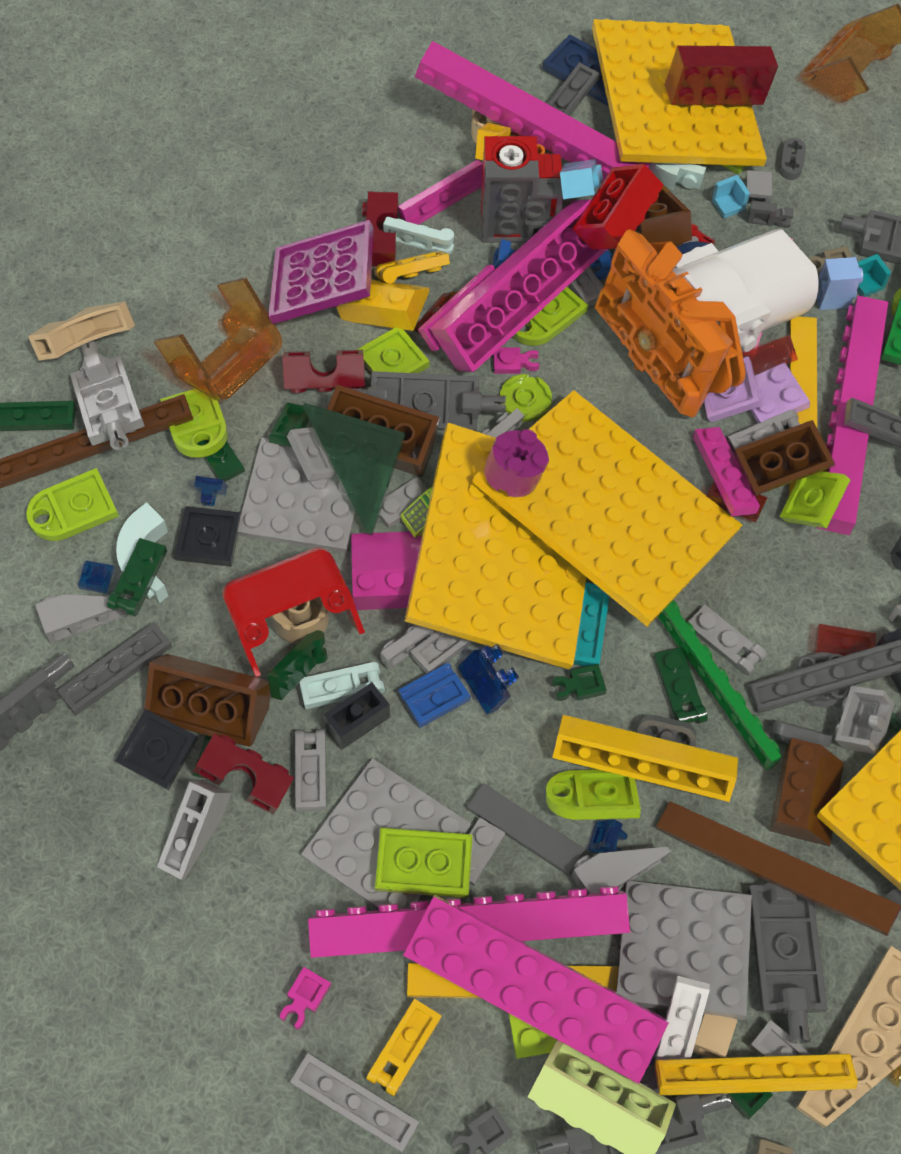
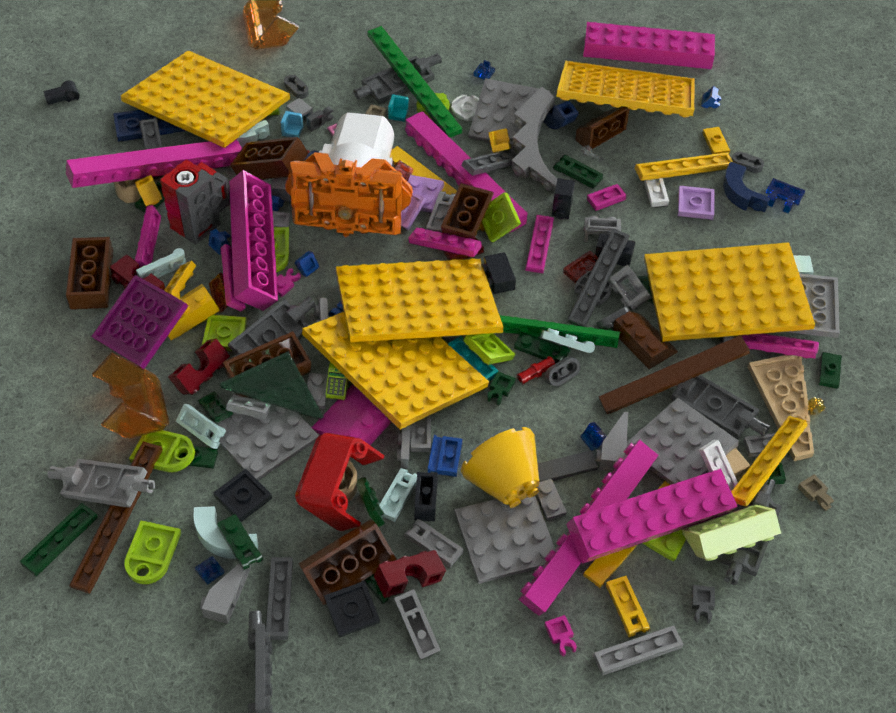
camera: 50 degrees left, 10 degrees down
(87, 325) = (40, 458): tan arch -> none
(210, 488) = (214, 473): clear blue tile -> none
(253, 430) = (200, 426): none -> light aqua plate
(343, 181) = (89, 273): none -> reddish brown brick
(424, 862) = (537, 524): lime tile -> none
(453, 772) = (505, 466): none -> yellow cone
(483, 680) = (460, 427): clear blue plate -> none
(516, 462) = (365, 310): magenta brick -> none
(527, 394) = (309, 289): lime tile -> none
(557, 361) = (307, 264): none -> blue tile
(580, 178) = (227, 164): medium azure brick -> none
(593, 795) = (568, 423): lime plate -> none
(618, 206) = (263, 161): red brick -> none
(618, 632) = (489, 348): none -> lime plate
(640, 703) = (535, 370): none -> red pin
(646, 758) = (567, 388): yellow brick -> none
(712, 708) = (569, 340): none -> light aqua plate
(721, 75) = (225, 70): dark red brick -> none
(726, 640) = (536, 310): light grey plate -> none
(740, 560) = (499, 273): none -> black brick
(833, 571) = (539, 244): none -> dark pink tile
(838, 283) = (395, 115): light blue brick -> none

